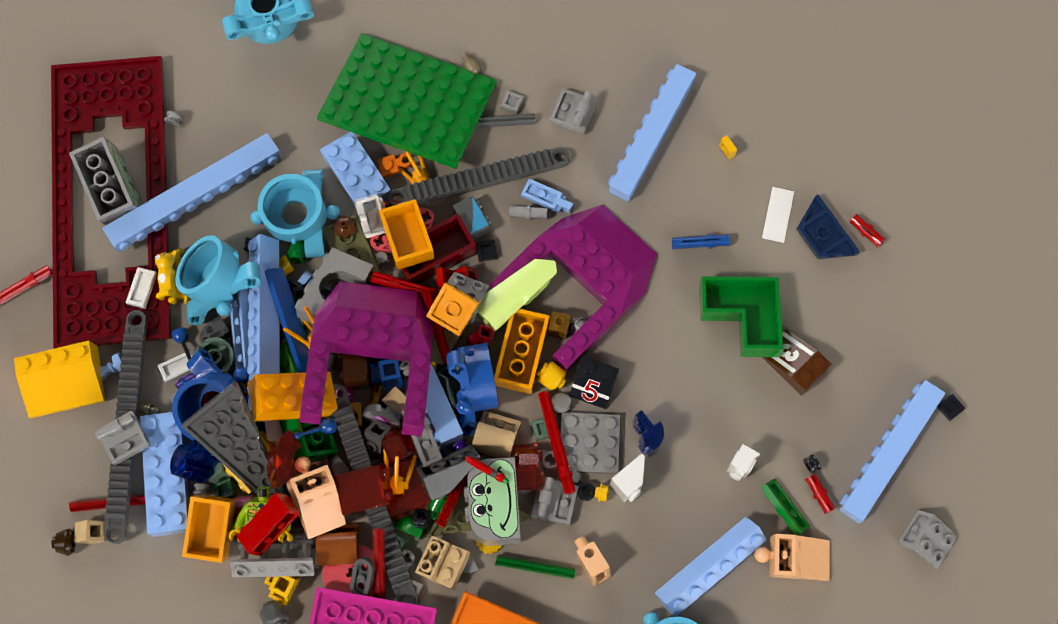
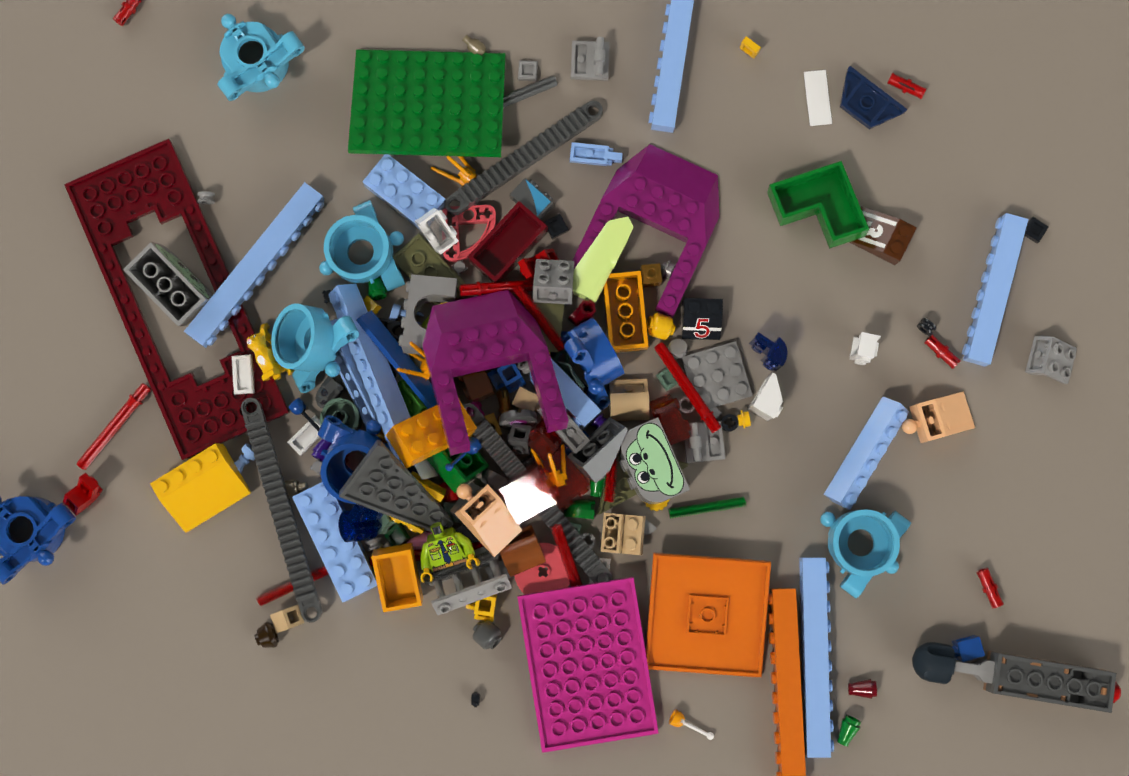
camera: 20 degrees left, 10 degrees up
(123, 437) = (285, 523): light grey plate -> none
(268, 524) = (454, 557): red brick -> none
(281, 459) = (443, 494): clear red brick -> none
(344, 230) = (415, 253): reddish brown plant -> none
(362, 575) = (555, 571): dark grey plate -> none
(391, 165) = (434, 173): orange plate -> none
(406, 234) = (479, 239): light orange piece -> none
(418, 514) = (588, 505): black bush -> none
(452, 309) = (550, 297): light orange tile -> none
(486, 469) = (637, 438): red piece -> none
(528, 212) = (582, 175): light grey pin -> none
(596, 566) = (763, 491): light nougat torso -> none
(700, 241) = (735, 157): blue pin -> none
(785, 507) = (915, 375): green plate -> none

